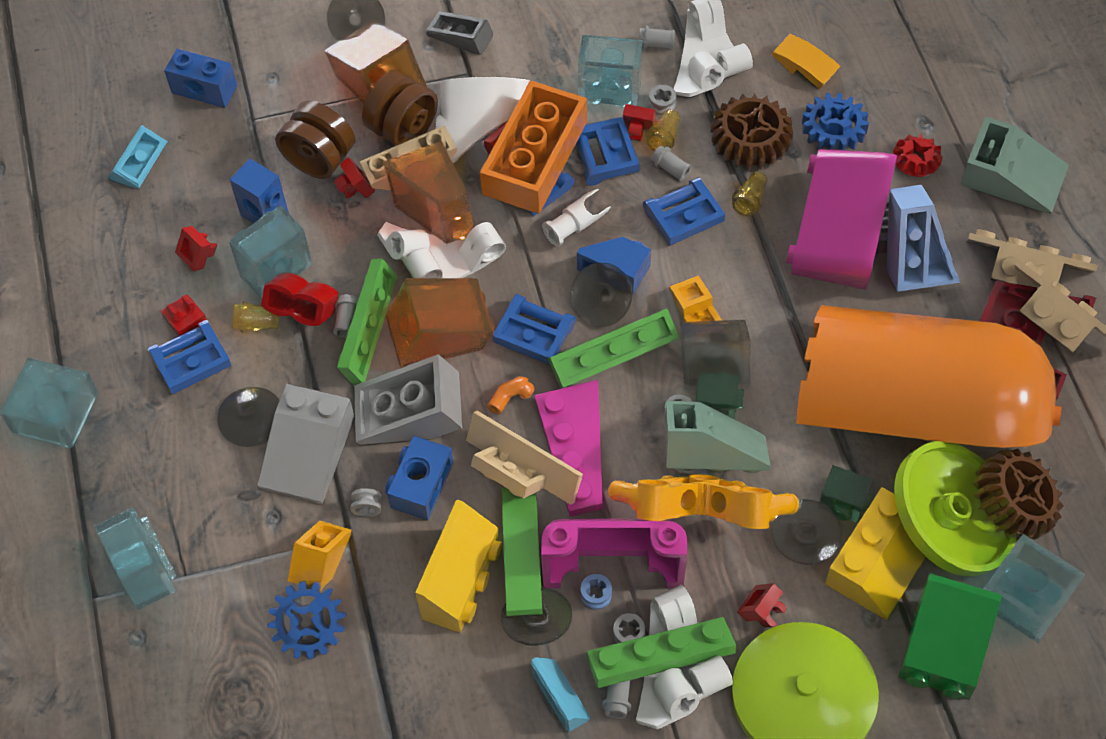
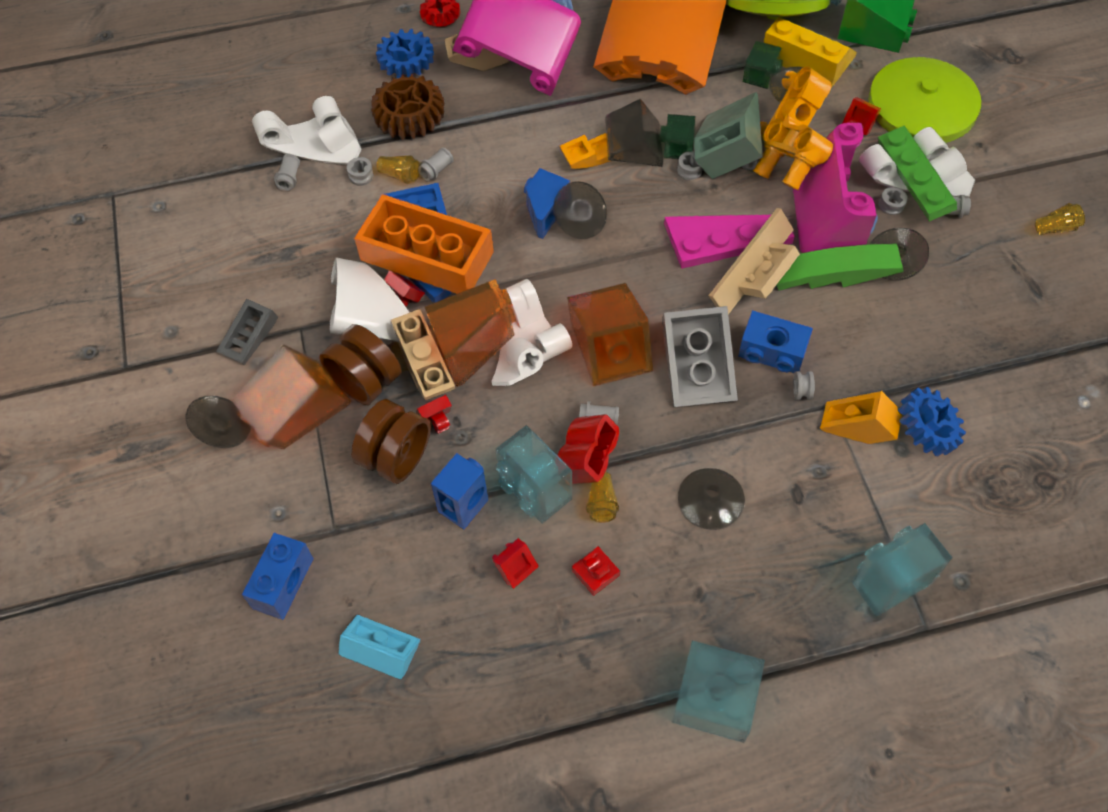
camera: 90 degrees left, 0 degrees up
(193, 363) = (659, 552): blue plate -> none
(305, 443) = (746, 439): light grey slope -> none
(367, 321) = (621, 396): bright green plate -> none
(458, 568) = (866, 310): yellow slope -> none
(507, 390) = (676, 283): orange arm -> none
(530, 336) = (621, 265): blue plate -> none
(559, 693) = (959, 244): medium azure slope -> none
(573, 219) = (503, 242): white piece -> none
(610, 70) = (334, 195): clear light blue brick -> none
(613, 348) = (635, 204): bright green plate -> none
(638, 119) = (386, 182): red tile -> none
(685, 218) = (495, 151): blue plate -> none
(749, 195) = (475, 111): clear yellow cone -> none
(806, 58) = (328, 71): light orange slope -> none

